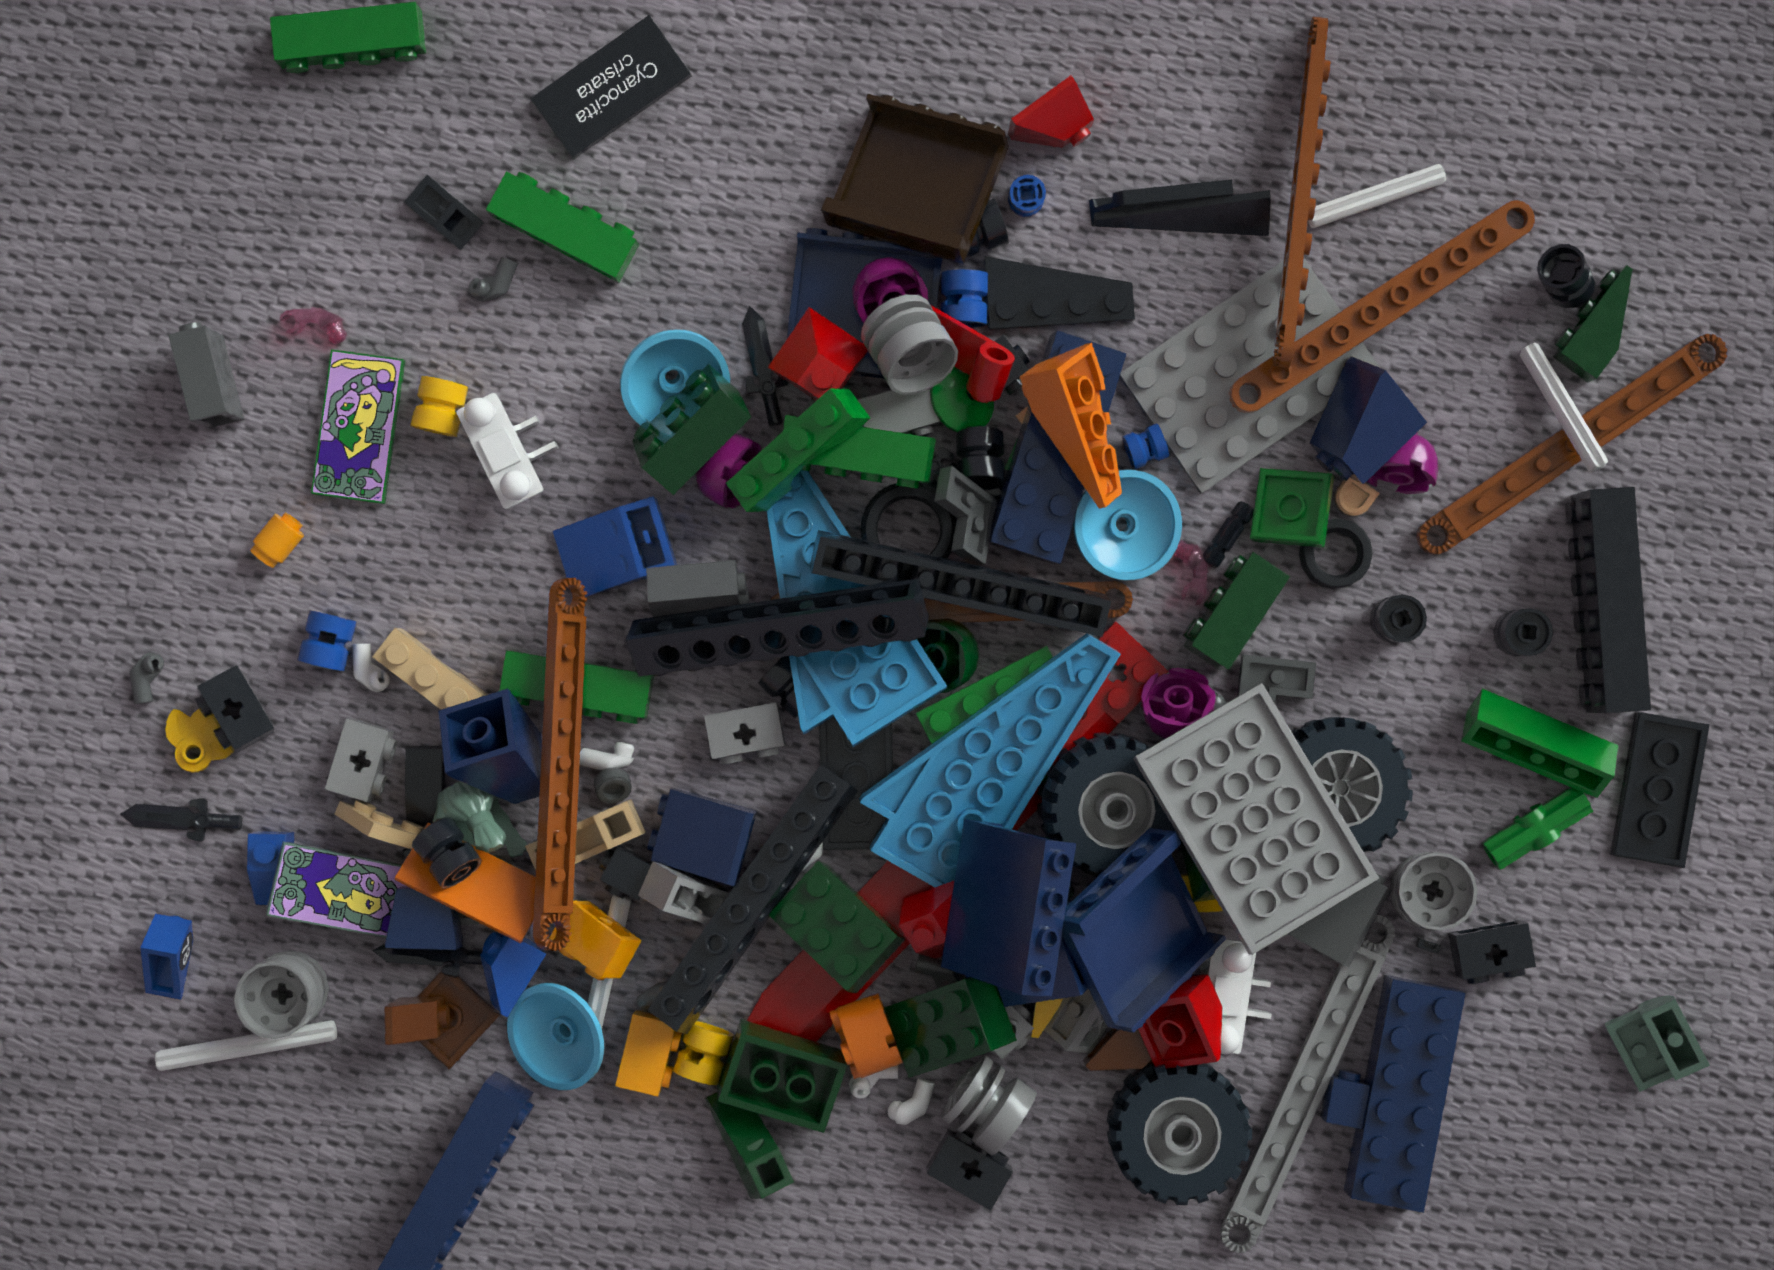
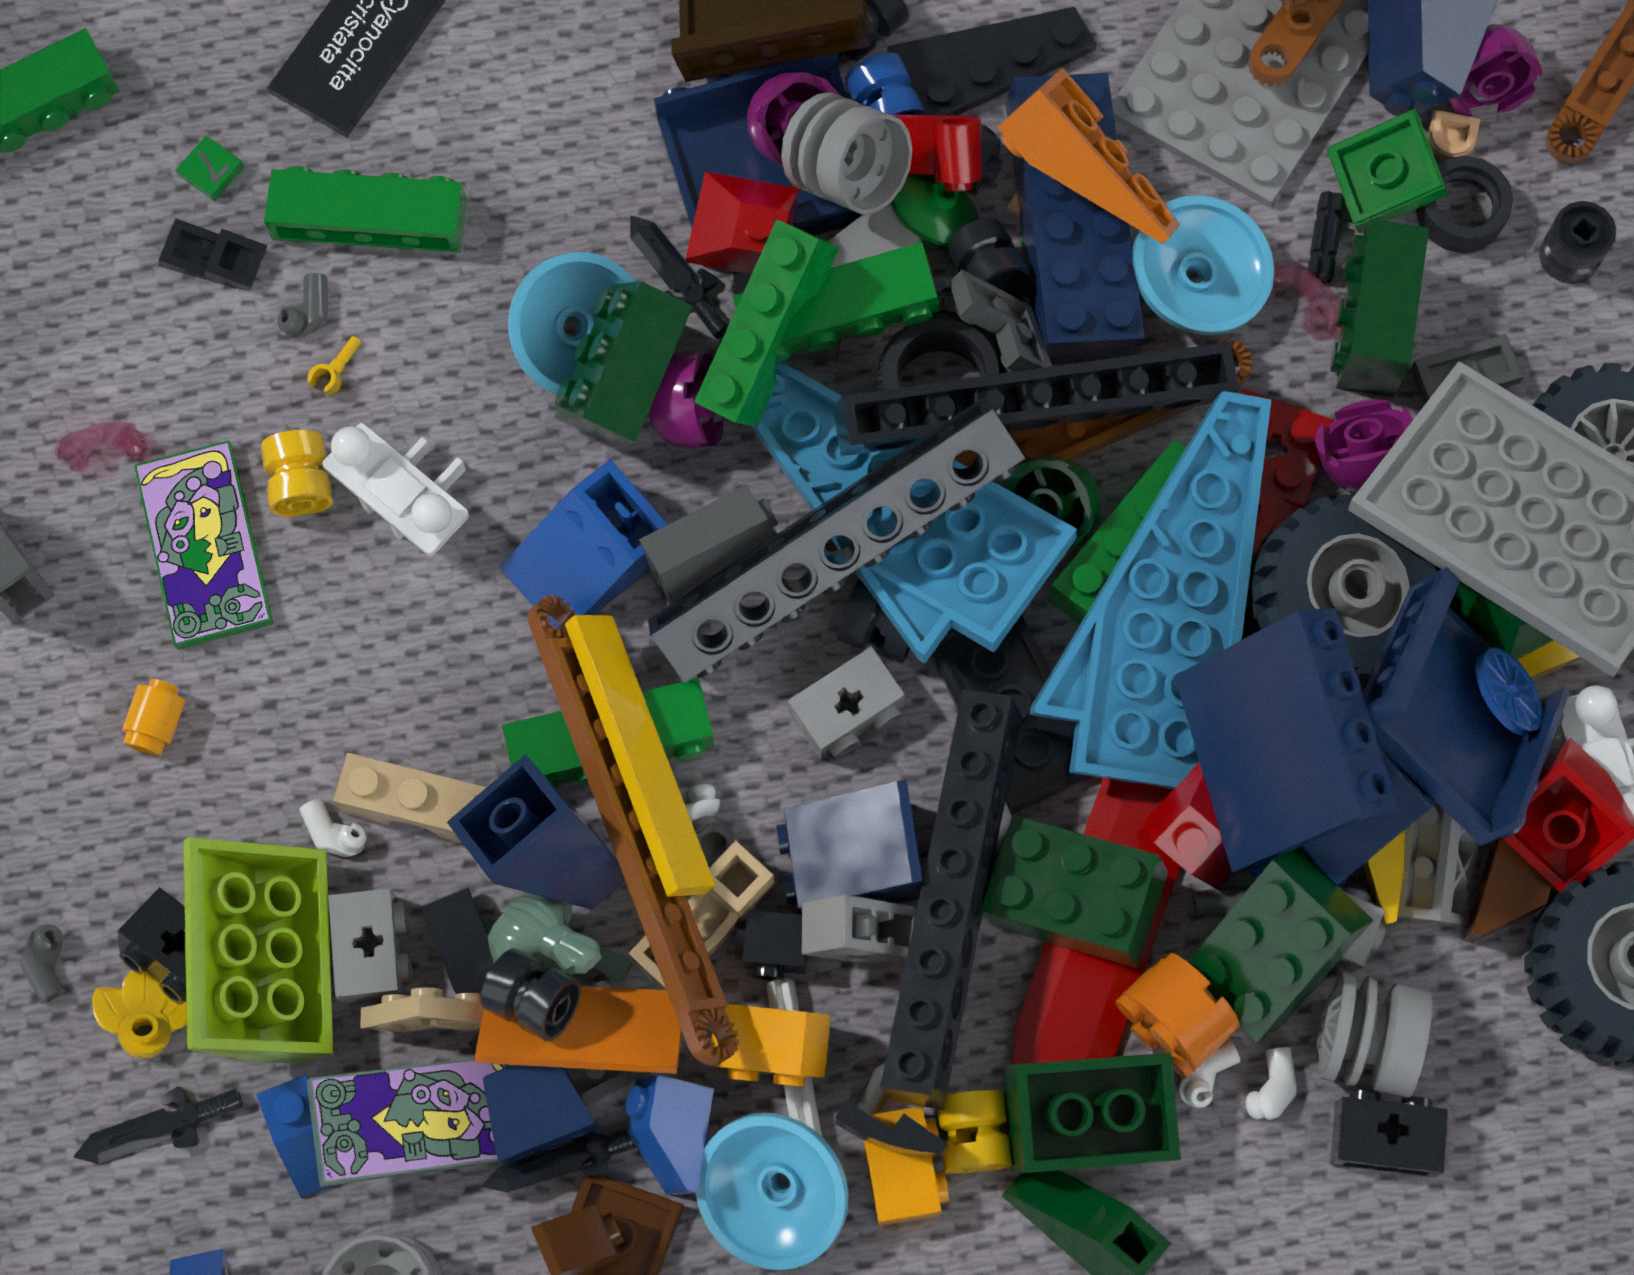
camera: 20 degrees left, 15 degrees down
(282, 741) = (257, 951): none -> lime slope
(324, 653) = (261, 791): blue wheel -> none
(467, 143) = (210, 168): none -> green tile
(497, 334) = (334, 368): none -> yellow hand
(586, 715) = (640, 755): none -> yellow tile
(652, 1045) = (905, 1138): none -> black slope
(1145, 446) = (1181, 173): blue wheel -> none
(1181, 926) = (1509, 691): none -> blue wheel

